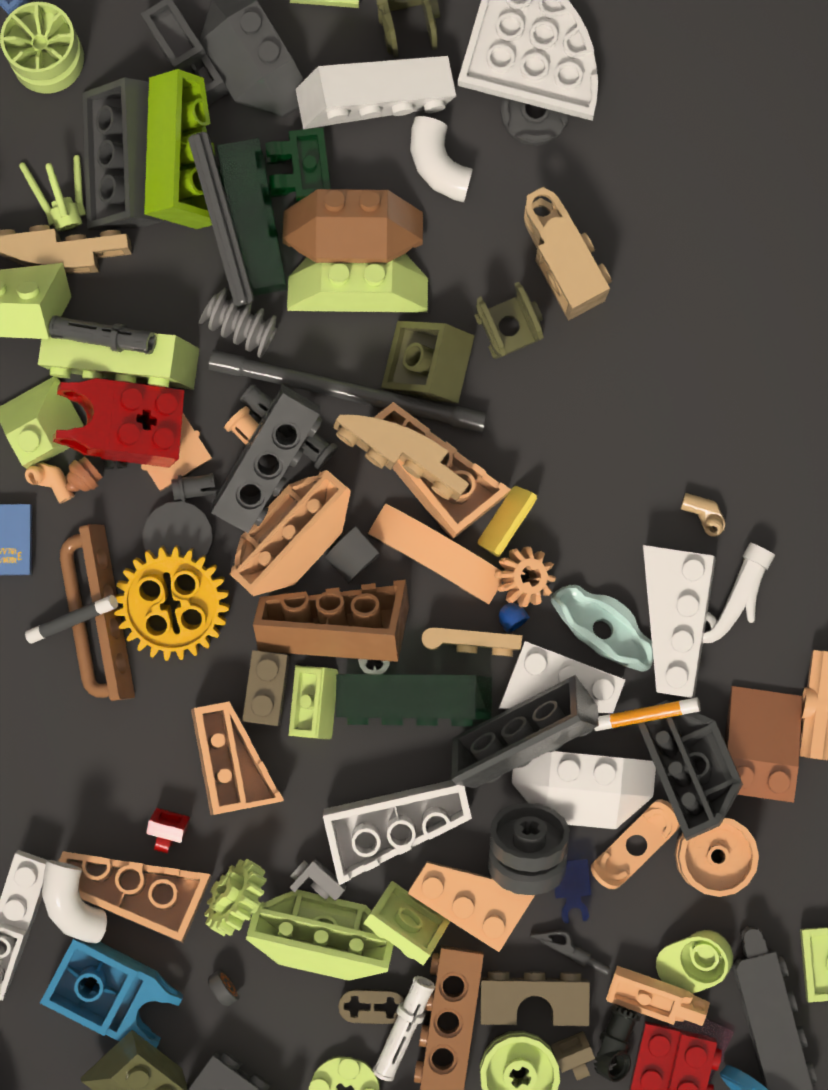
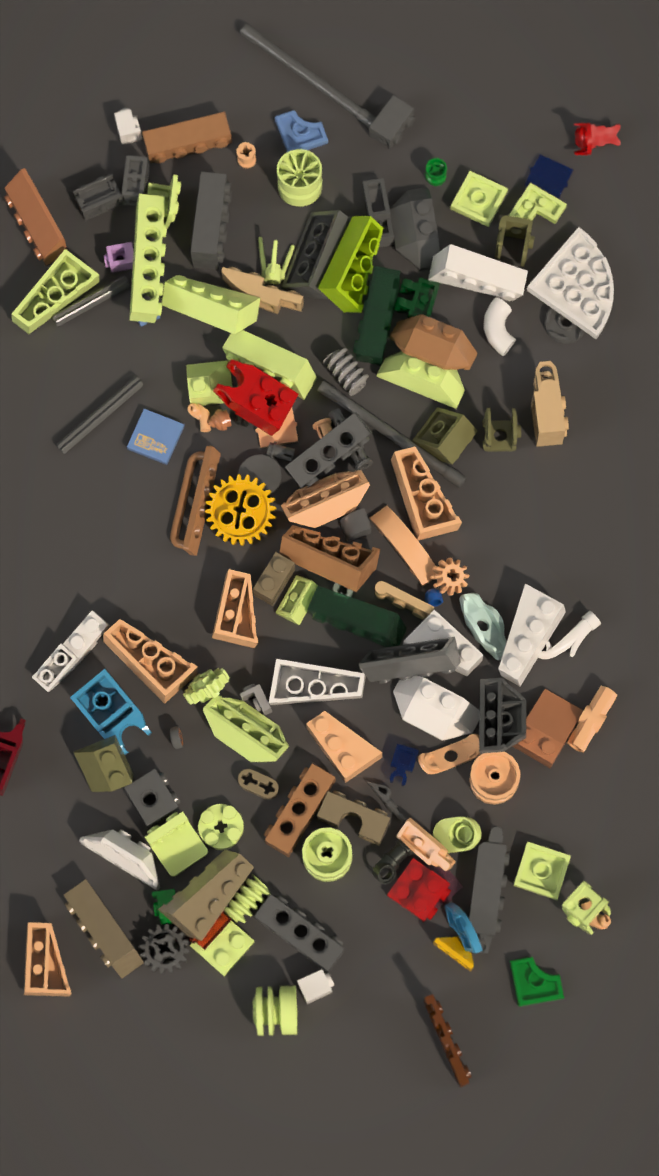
camera: 20 degrees right, 10 degrees down
(65, 904) = (109, 649): white cylinder -> none
(71, 619) = (178, 495): dark grey bar -> none
(115, 336) = (273, 347): dark grey pin -> none
(168, 828) = (183, 635): red tile -> none
(221, 218) = (360, 307): dark grey axle -> none
(389, 442) = (404, 466): tan slope -> none
(406, 923) = (298, 741): yellowish green plate -> none
(409, 1016) = (278, 794): white pin -> none
(507, 520) = (453, 543): light yellow slope -> none
(528, 849) = (386, 726): dark grey wheel -> none
(573, 1054) = (363, 857): dark tan tile -> none
(648, 714) = (488, 680): light orange bar -> none
(707, 511) = (572, 584): tan arm -> none

